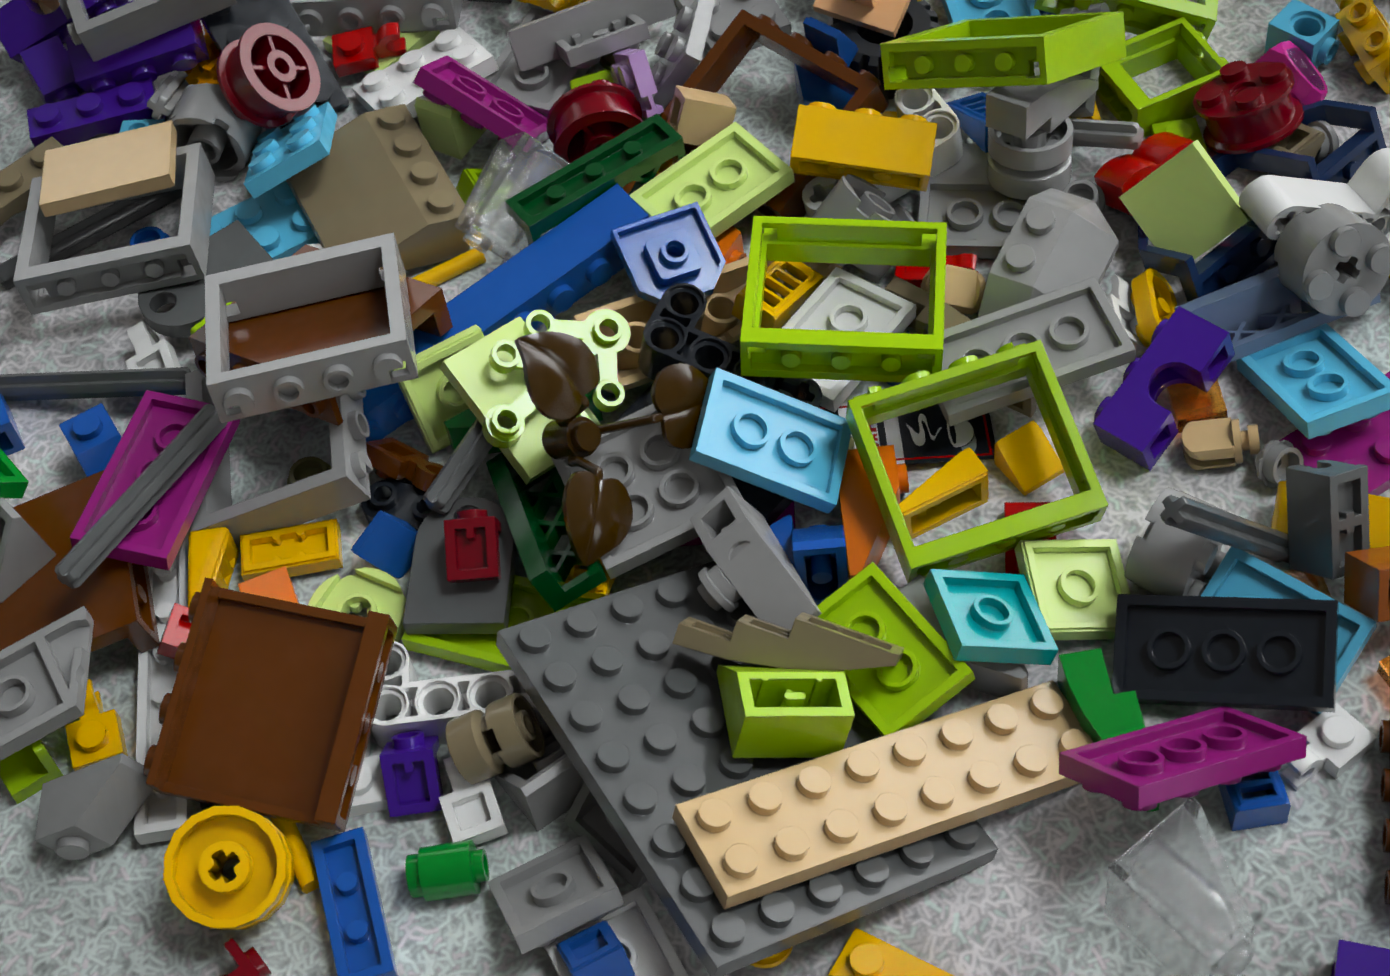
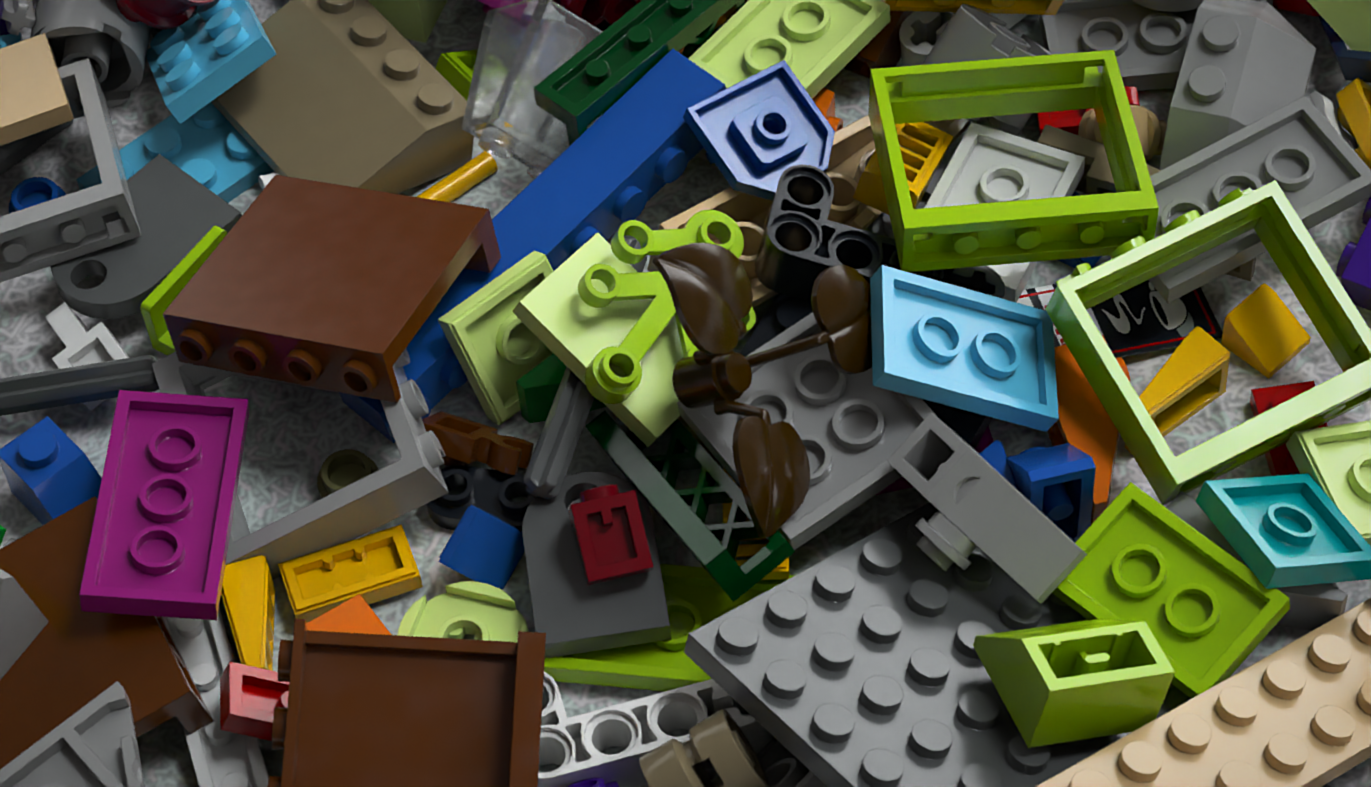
camera: 15 degrees left, 0 degrees up
(139, 498) = (161, 529): dark grey axle -> none
(300, 282) = (319, 217): light grey window -> none
(808, 645) = (1083, 597): dark tan slope -> none

